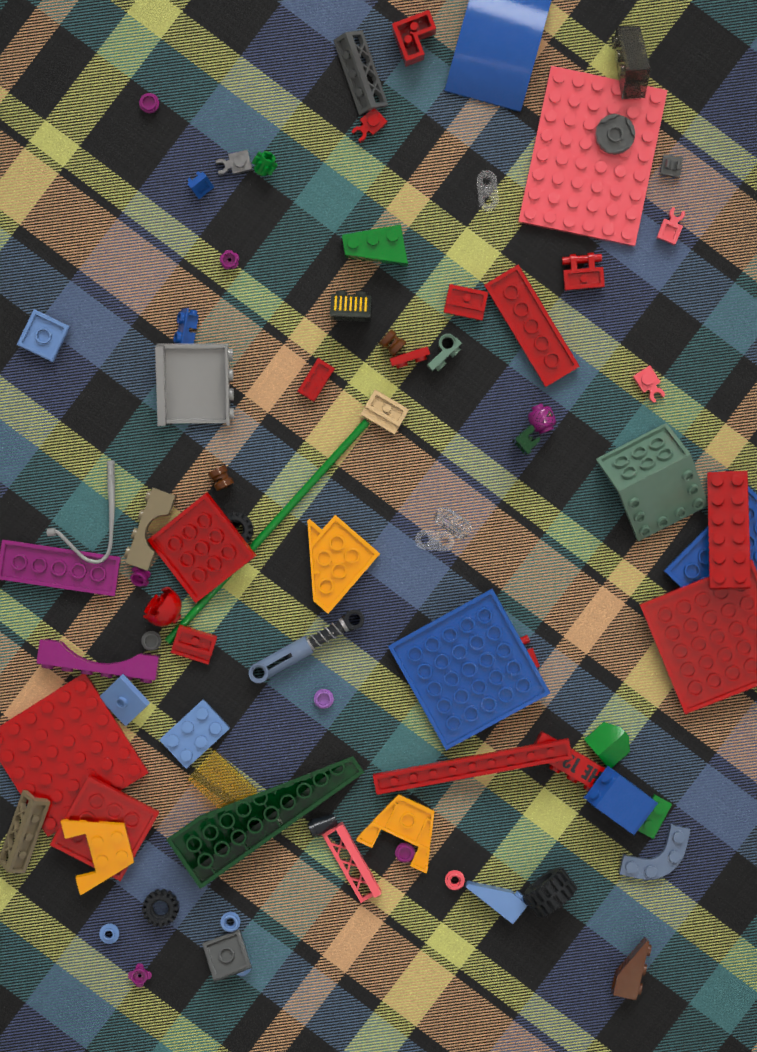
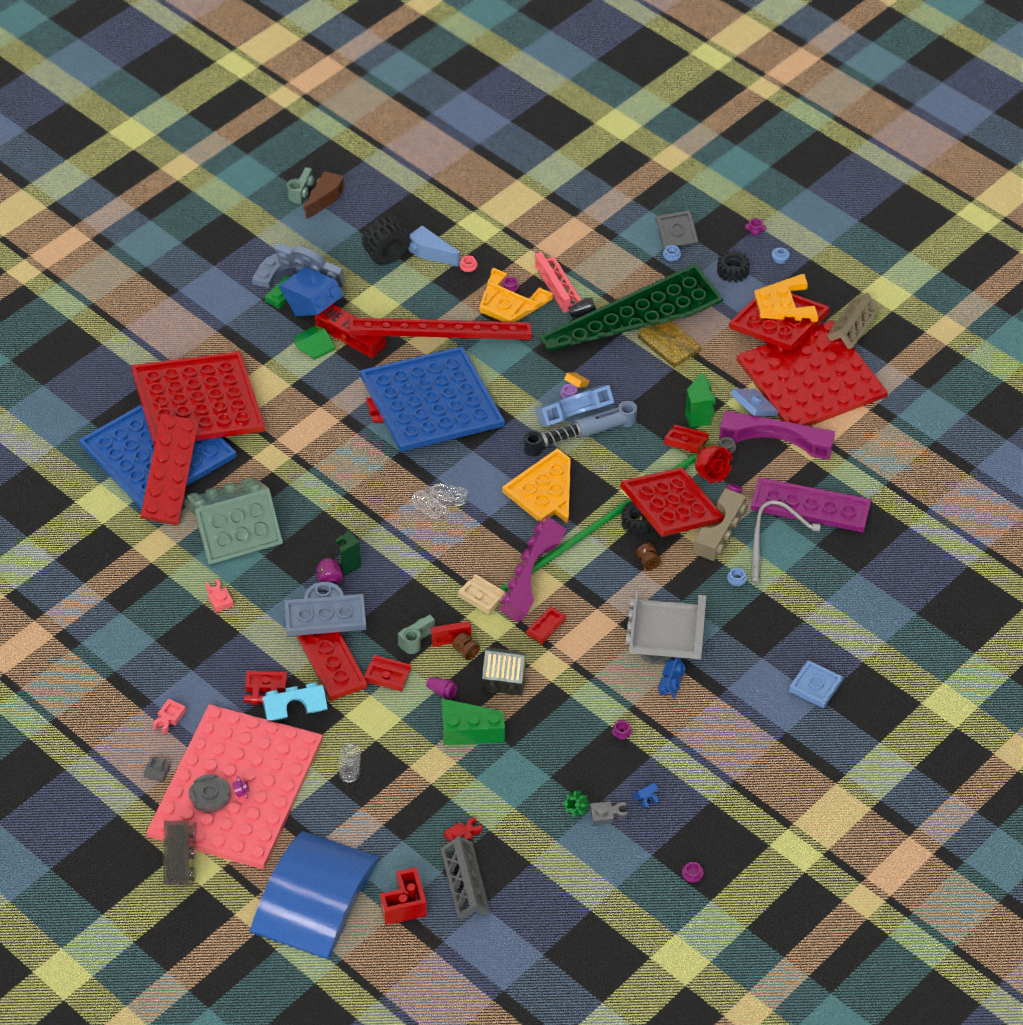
camera: 175 degrees left, 40 degrees down
(125, 459) = (737, 577): none -> medium blue plate
(182, 688) = (700, 403): none -> green slope
(194, 733) = (679, 380): medium blue plate -> none
(296, 687) = (574, 404): none -> medium blue arch
(317, 715) = (577, 380): none -> light orange tile
(328, 483) = (519, 597): none -> magenta arch
(408, 290) = (443, 687): none -> magenta cone
(538, 257) = (311, 696): none -> medium azure arch
(538, 361) = (324, 612): none -> sand blue plate
(586, 138) = (241, 787): none -> magenta plate
(629, 843) = (303, 257): none -> sand blue plate
(654, 990) = (299, 188): none -> sand green plate

